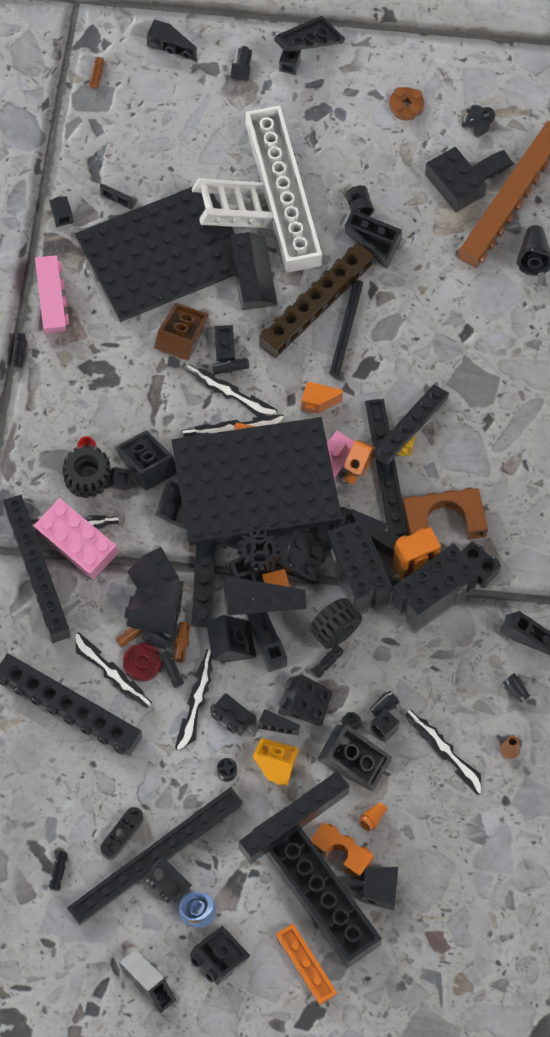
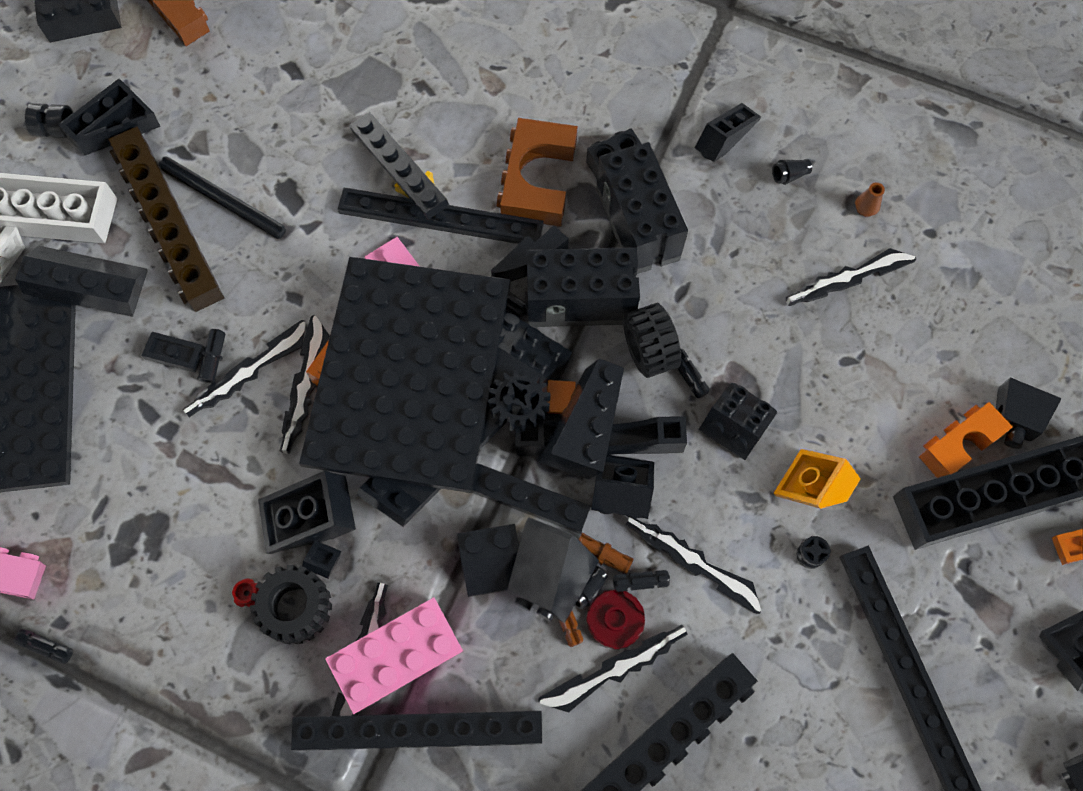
camera: 70 degrees left, 5 degrees up
(123, 841) = (879, 755): black beam -> none
(170, 875) = (967, 689): black brick -> none
(181, 331) = (128, 402): reddish brown slope -> none
(197, 909) = (1008, 658): medium blue piece -> none
(232, 714) = (730, 519): black bracket -> none
(276, 723) = (760, 470): black slope -> none
(294, 817) = (934, 481): black brick -> none
(320, 397) = (308, 260): orange slope -> none
(354, 717) = (783, 365): black plate -> none
(354, 756) = (835, 384): black slope -> none
(359, 452) = (422, 229): orange torso -> none
(370, 819) = (925, 390): orange cone -> none
(384, 725) = (804, 331): black brick -> none
(386, 700) = (771, 323): black cone -> none
(414, 551) = (590, 208): orange brick -> none

